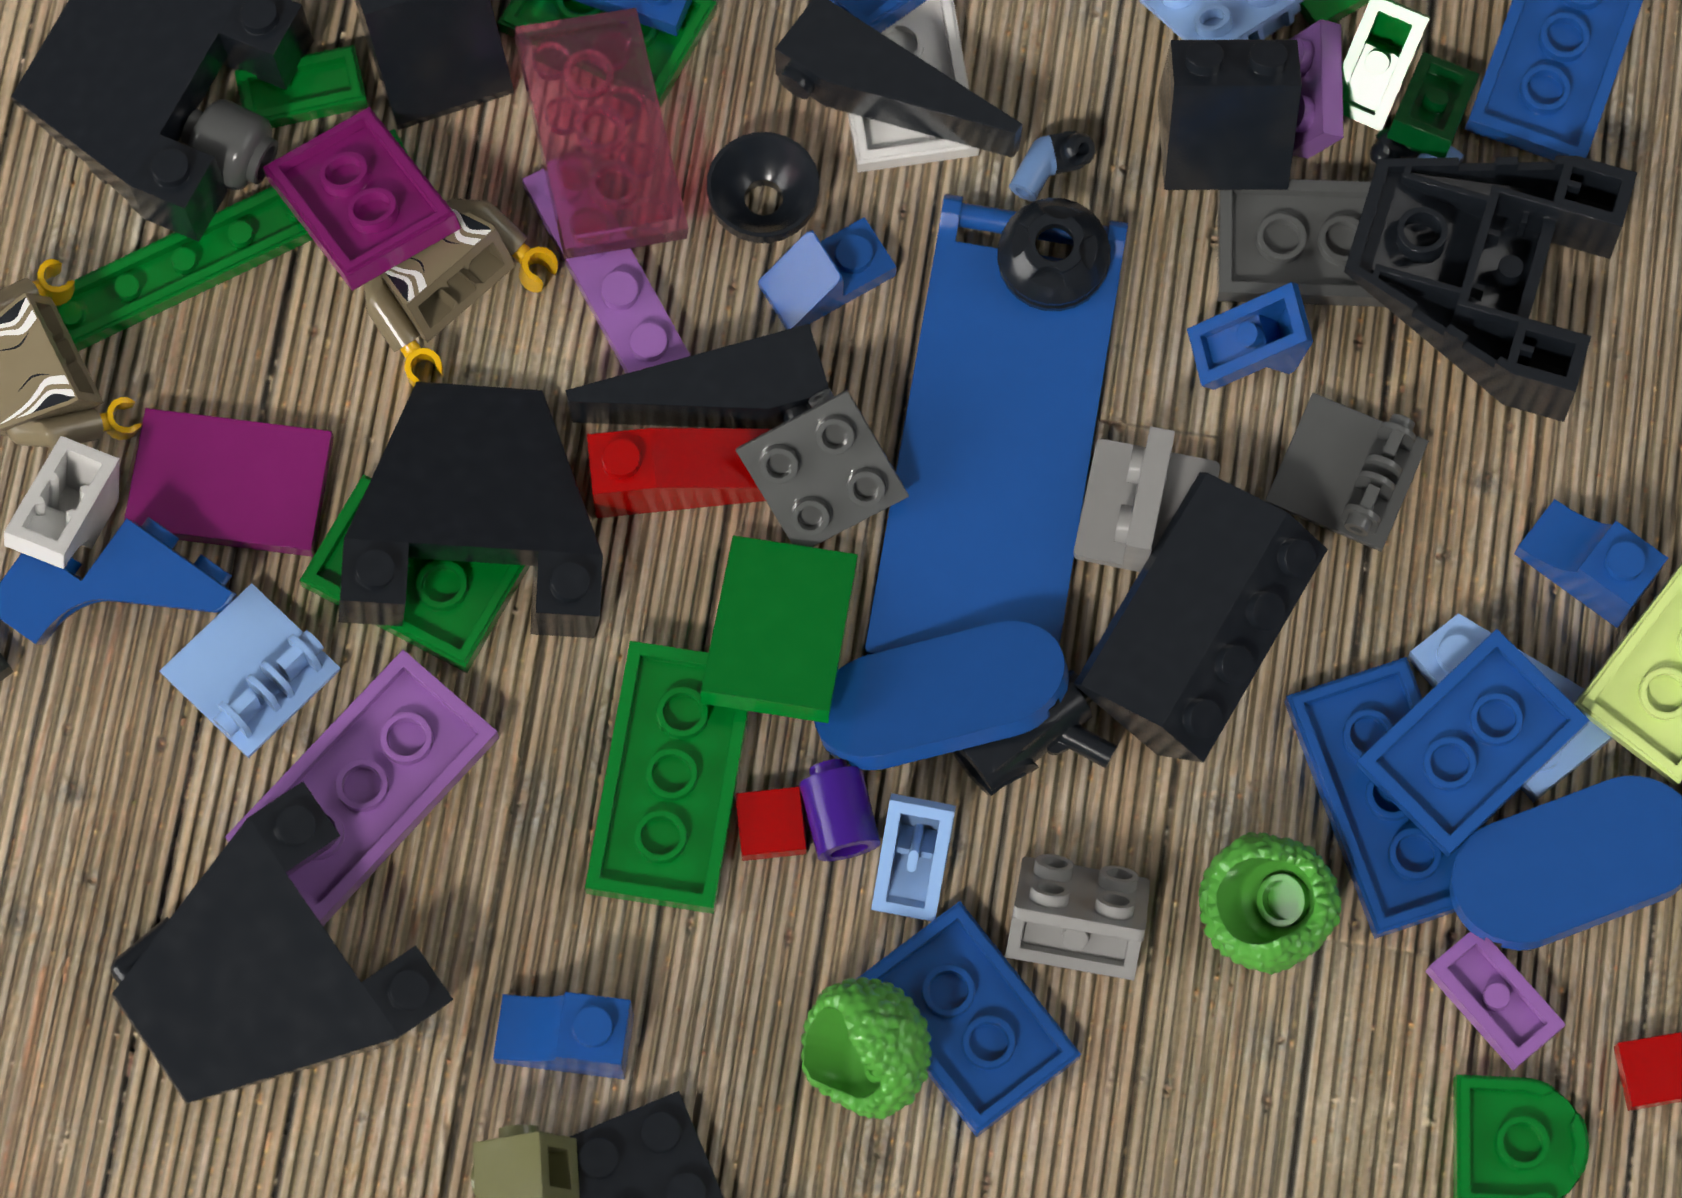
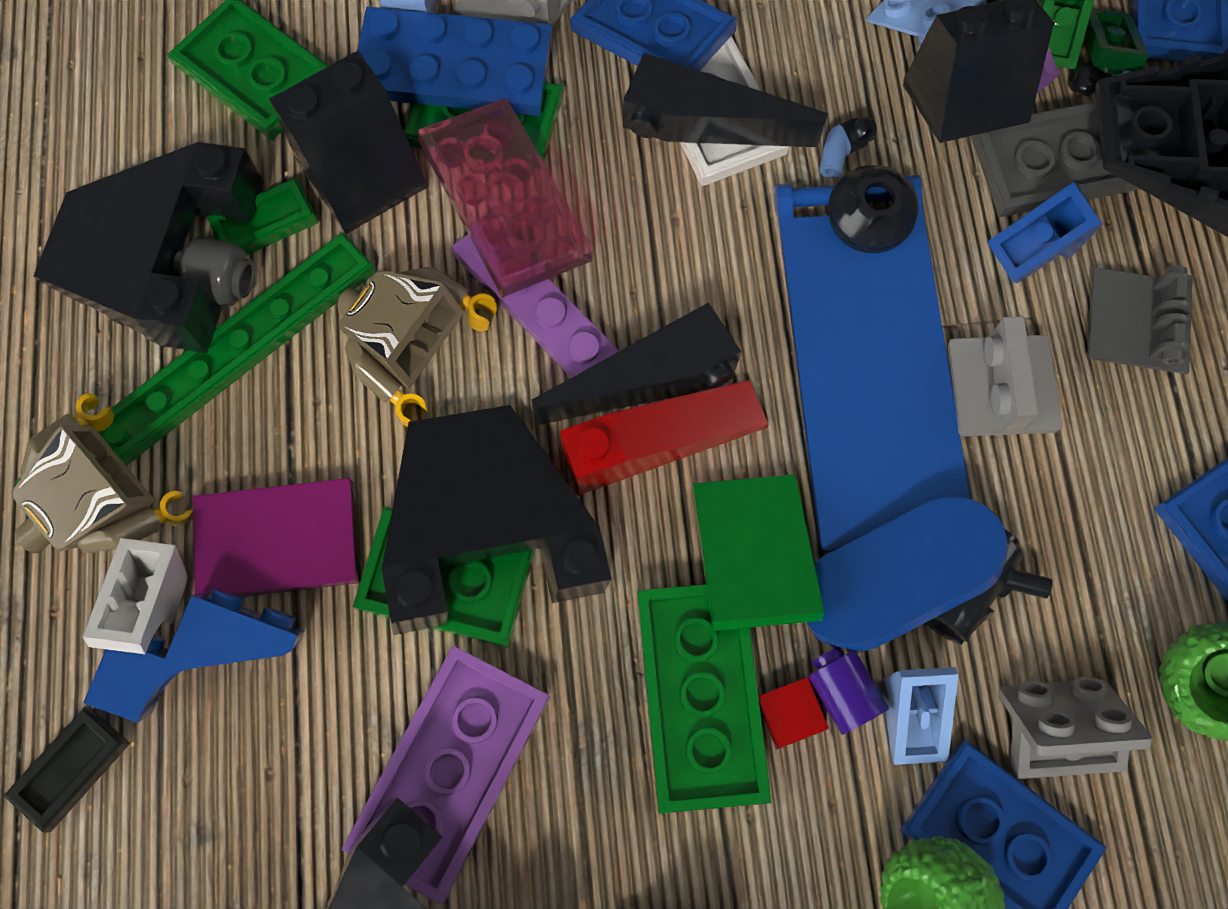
camera: 15 degrees left, 0 degrees up
(250, 670) = (329, 694): light blue hinge -> none
(361, 198) = (329, 288): magenta tile -> none
(763, 161) = (639, 191): black piece -> none
(822, 470) = (752, 413): dark grey hinge -> none
(826, 274) = (702, 264): blue slope -> none
(1200, 618) = (1089, 461): black slope -> none

